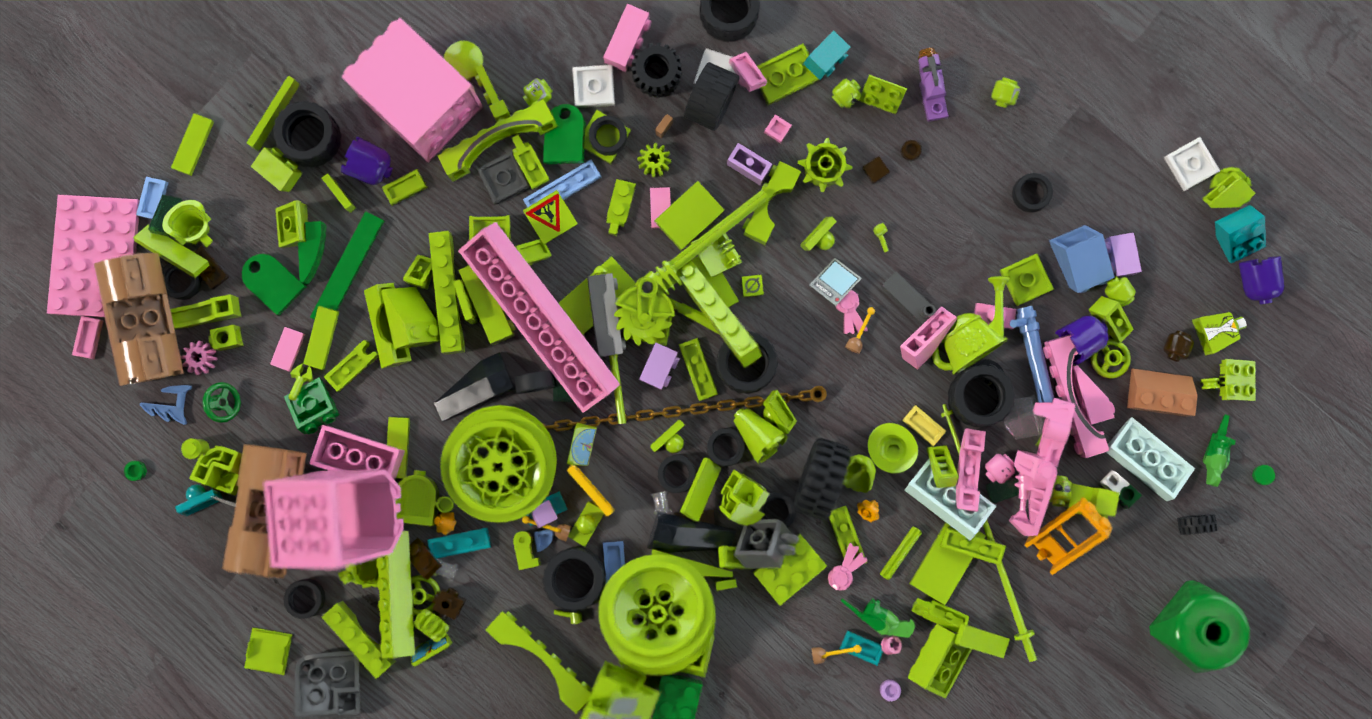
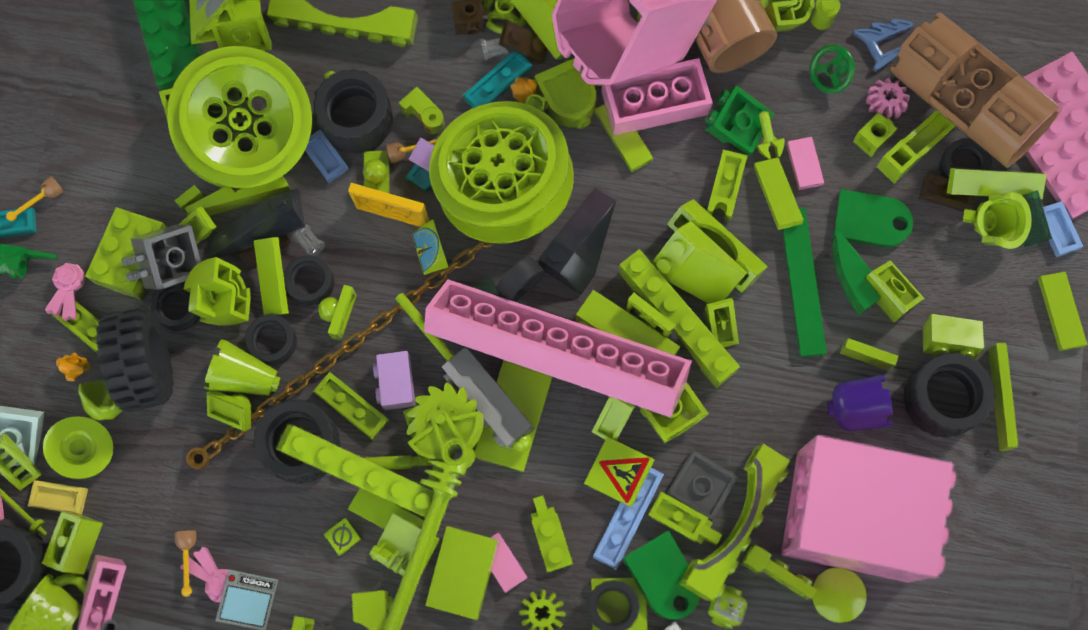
camera: 155 degrees right, 10 degrees down
(87, 337) = (1013, 52): bright pink tile -> none
(404, 187) = (803, 407): lime tile -> none
(543, 539) = (413, 134): medium blue tile -> none
(900, 553) = (14, 343): lime axle -> none
(928, 384) = (72, 543): none -> lime brick

